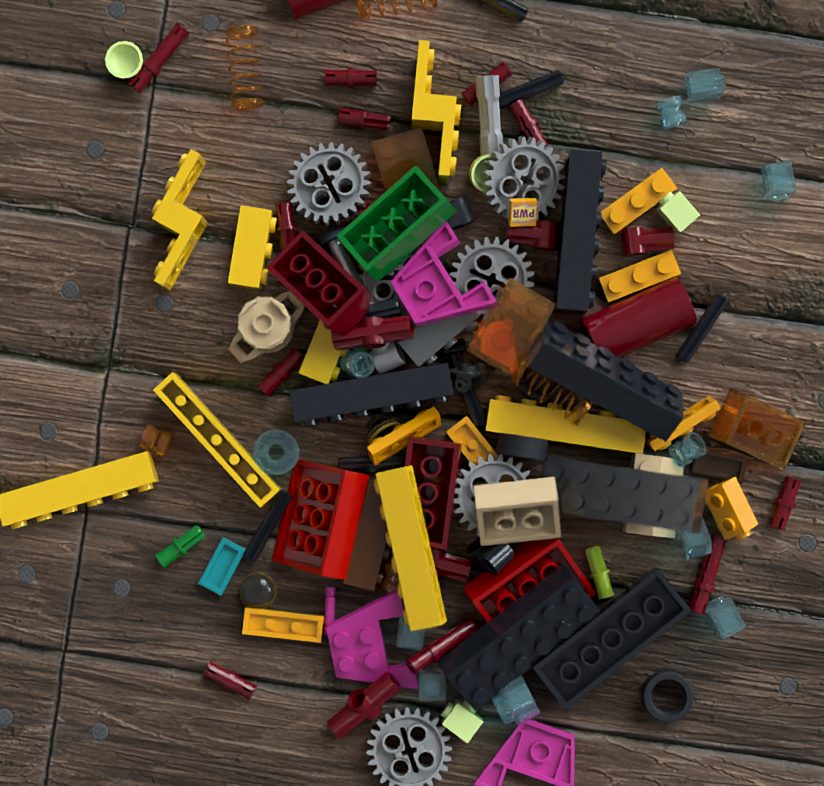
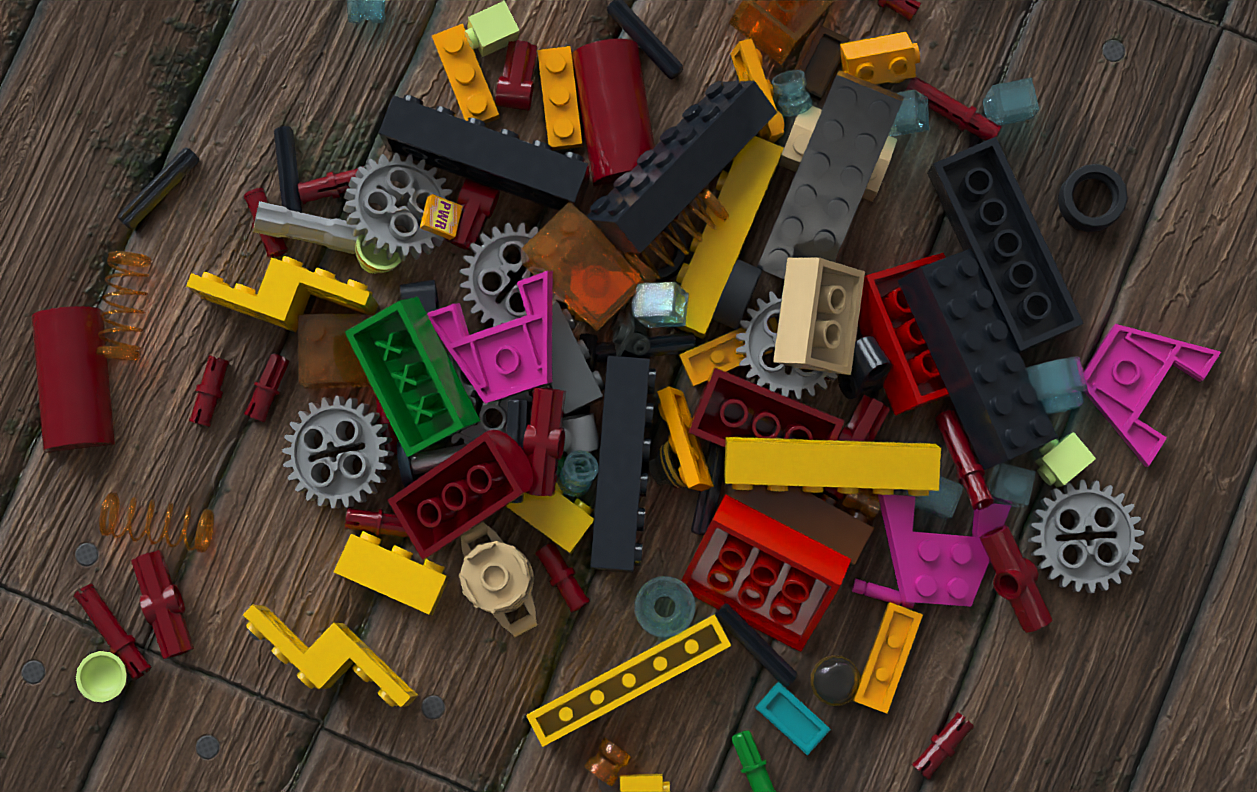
camera: 75 degrees left, 5 degrees down
(187, 88) = (162, 604): none -> dark red piece
(497, 392) = (660, 304): none -> clear light blue brick
(599, 572) = (917, 241): lime axle -> none

